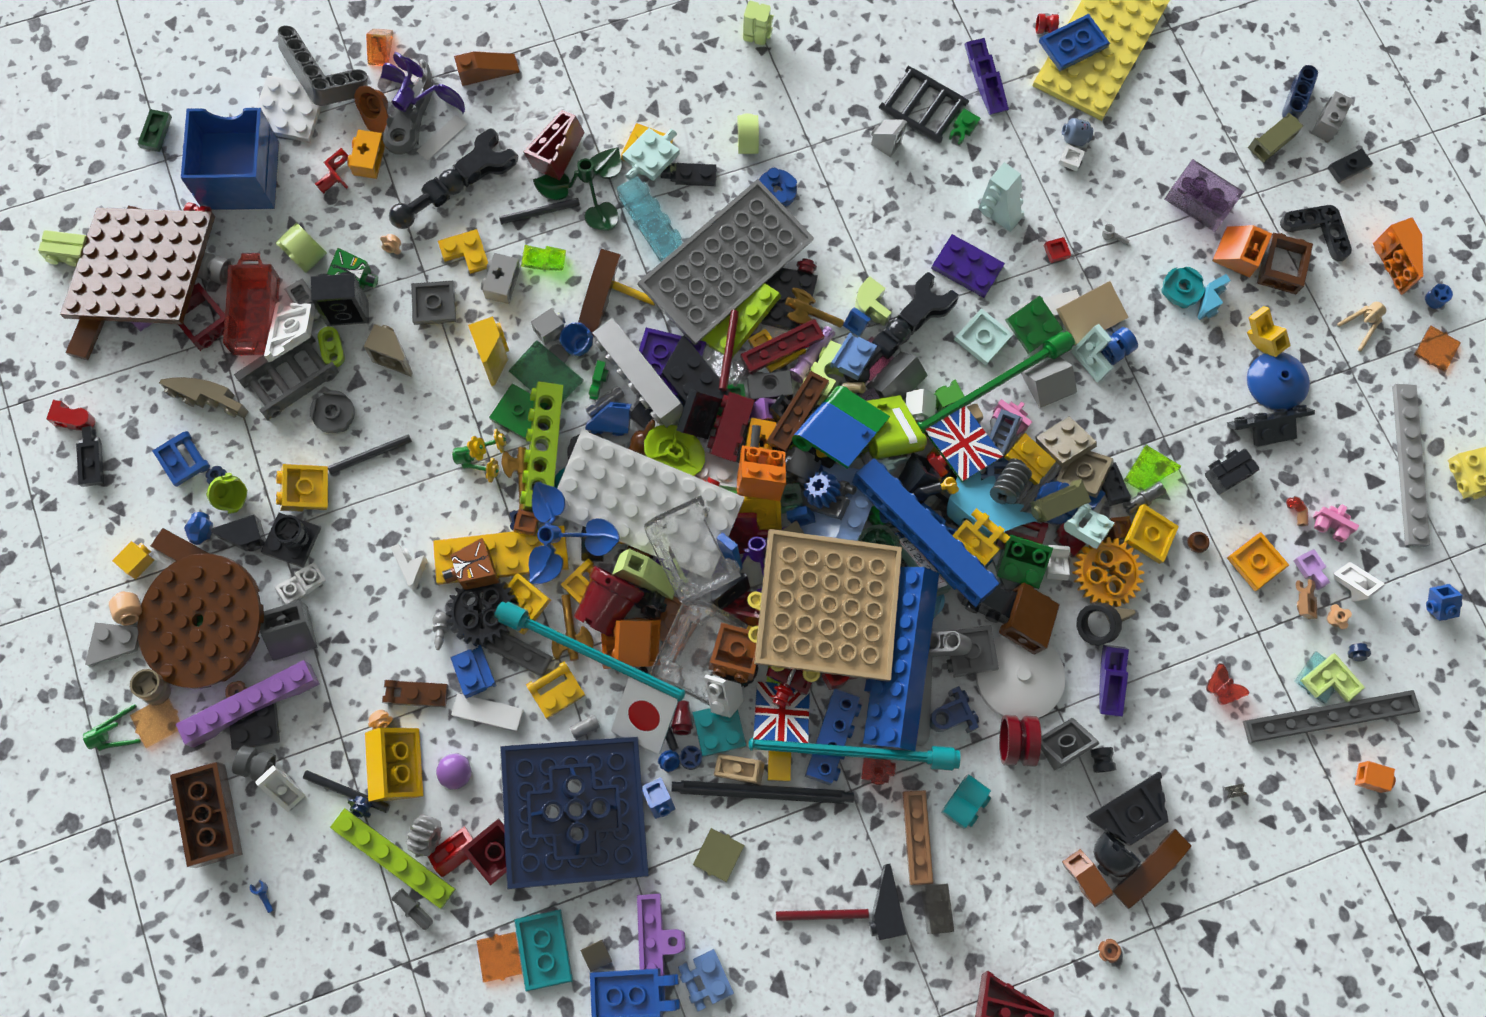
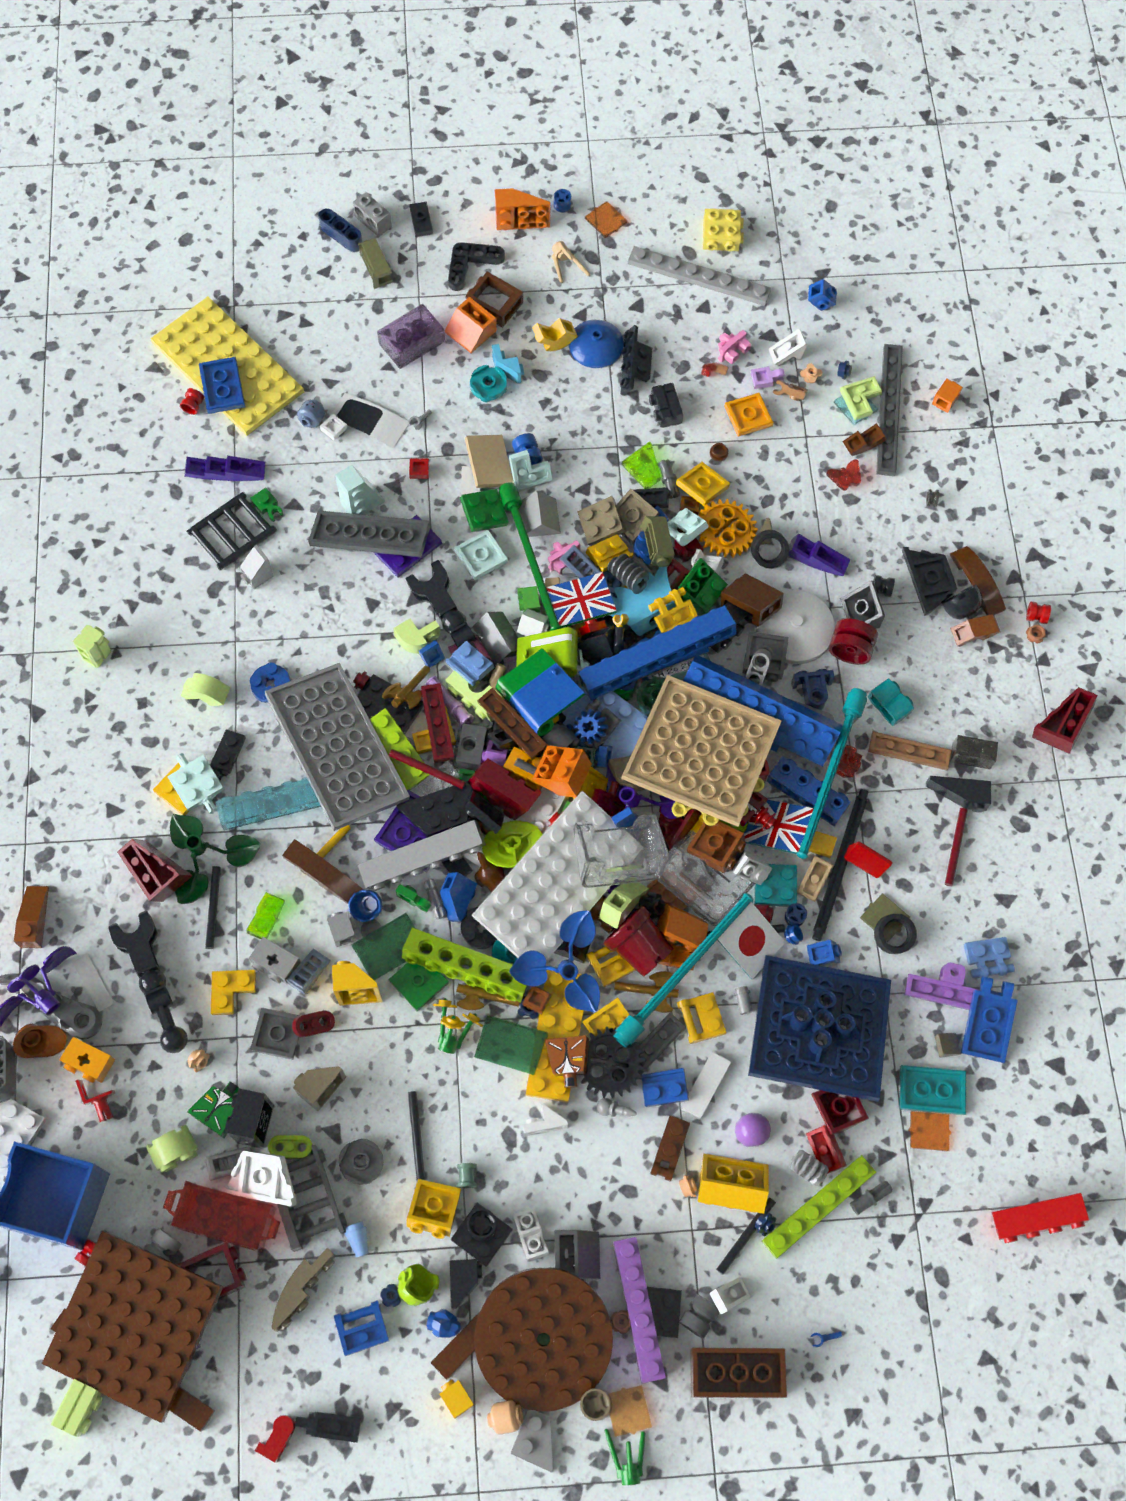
camera: 70 degrees left, 5 degrees down
(260, 430) = (357, 1237): none -> light blue cone
(341, 509) = (466, 1175): none -> sand green bush
(447, 329) = (312, 1025): none -> dark red plate
(477, 512) = (510, 1045): none -> clear green piece
(494, 301) = (304, 988): none -> sand blue slope
(685, 878) = (879, 933): none -> black tyre
(773, 817) = (867, 859): none -> red slope
(964, 224) = (369, 533): none -> dark grey plate
(1095, 189) = (370, 419): none -> sticker
(1136, 945) = (1038, 612): none -> red wheel
(1274, 694) = (860, 443): none -> reddish brown slope

